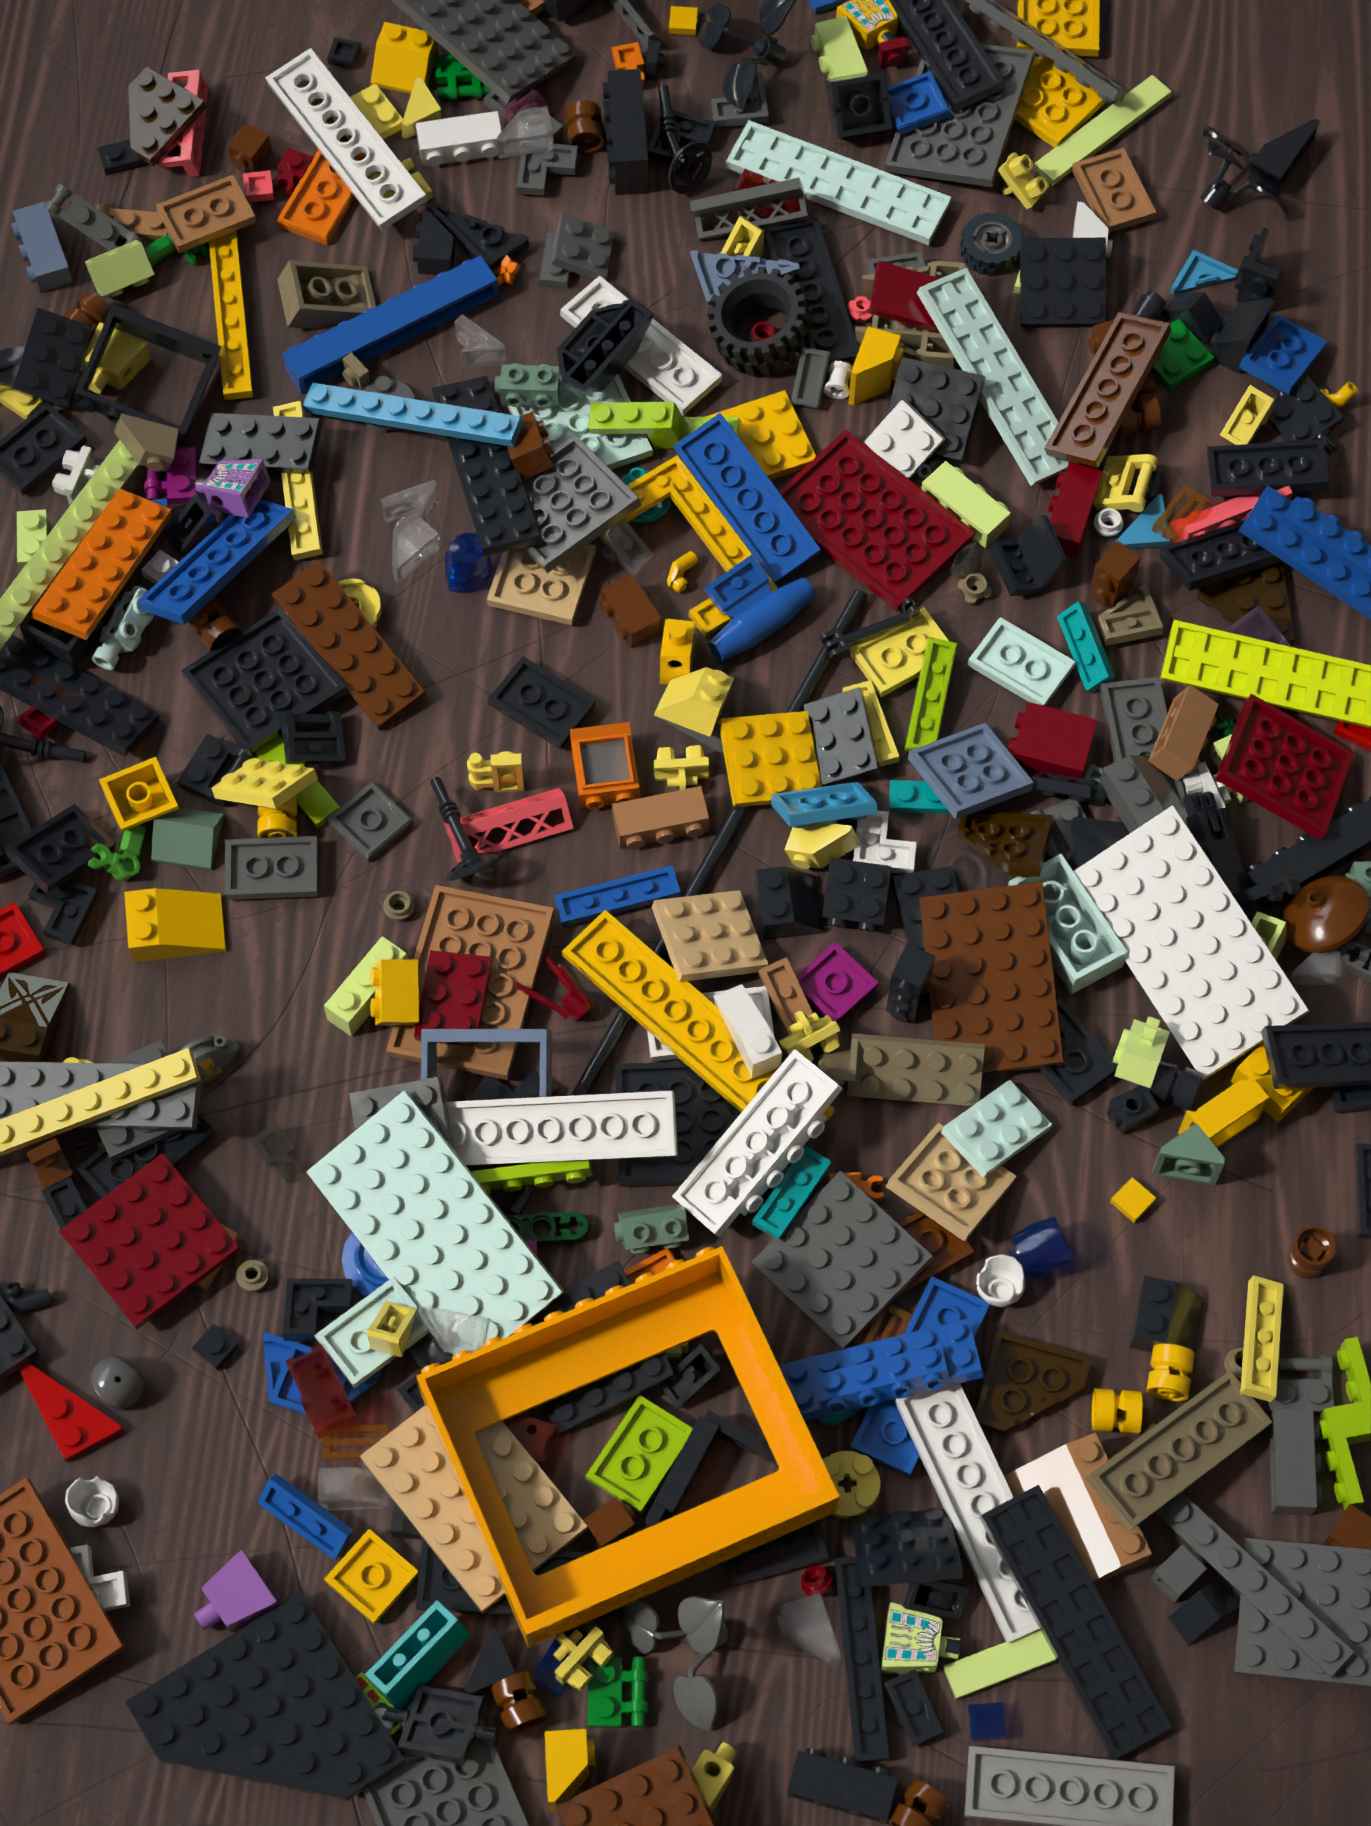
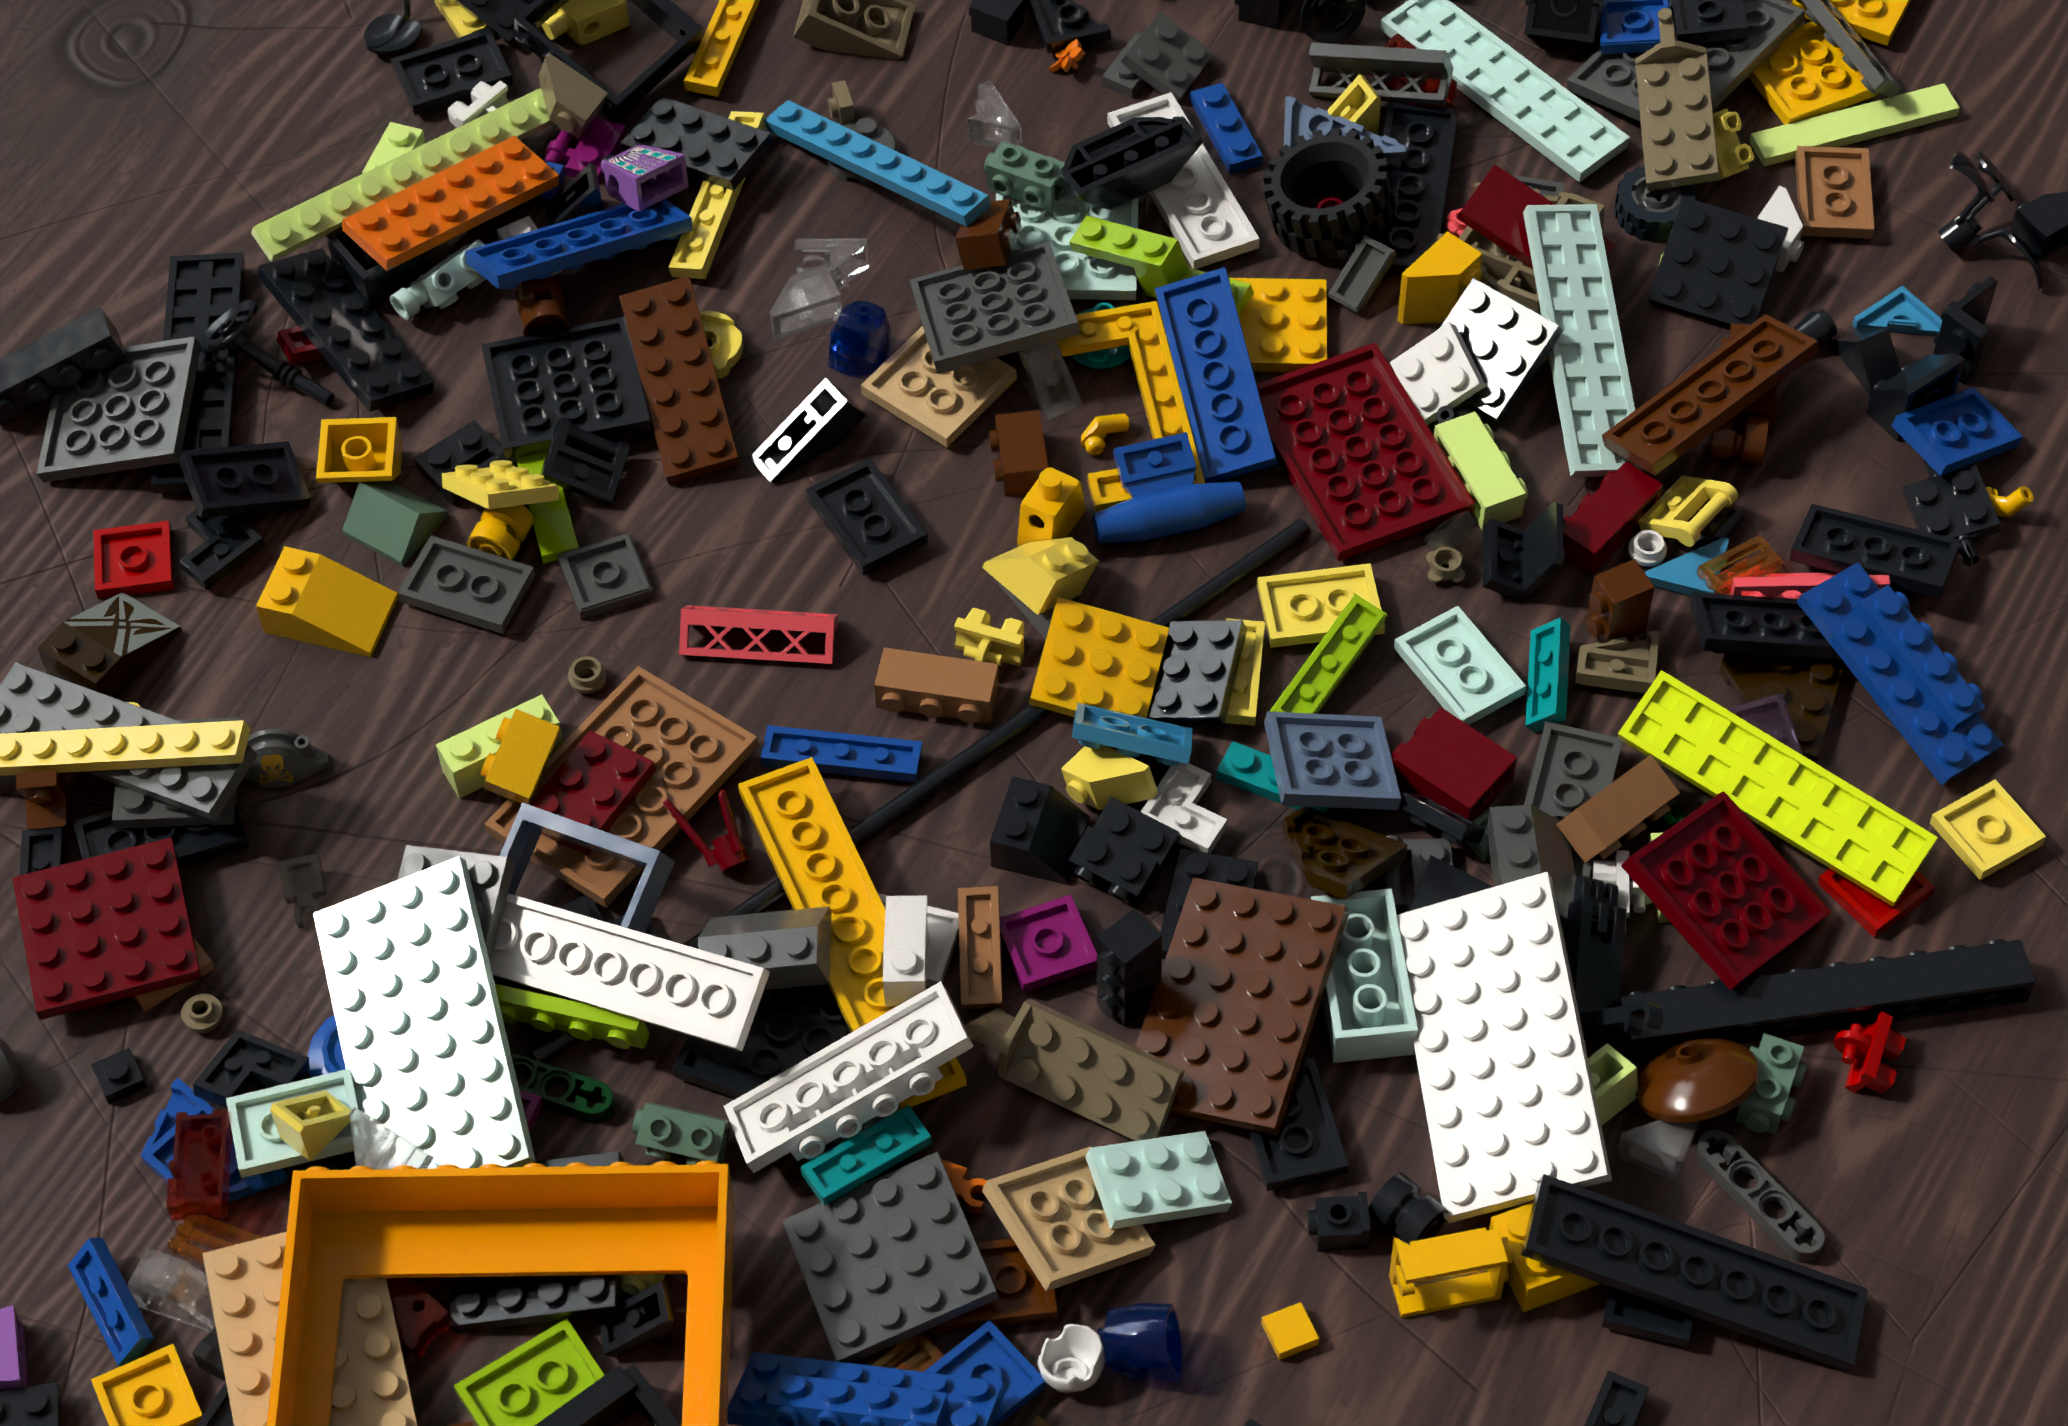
camera: 25 degrees right, 10 degrees down
(125, 862) = (308, 524): bright green bar -> none
(391, 323) = (912, 68): blue brick -> none
(465, 652) = (808, 432): none -> black slope
(471, 859) = (689, 646): black dish -> none
(489, 477) = (924, 257): black plate -> none
(502, 772) = (771, 566): light yellow plate -> none
(604, 765) = (902, 604): orange window -> none
(650, 1063) = (786, 943): none -> dark grey slope
(651, 290) = (1226, 128): none -> blue plate
(709, 935) = (922, 832): tan plate -> none
(810, 1031) = (998, 985): light yellow hips -> none
(838, 381) = (1391, 287): white bush -> none
(838, 644) = (1242, 567): black hinge -> none
(983, 169) = (1676, 111): none -> dark tan hinge
(1140, 1051) = (1379, 1153): yellowish green brick -> none
(1180, 357) = (1824, 394): green plate -> none
(1190, 1158) = (1376, 1301): sand green slope -> none
(1248, 416) = (1880, 483): light yellow slope -> none

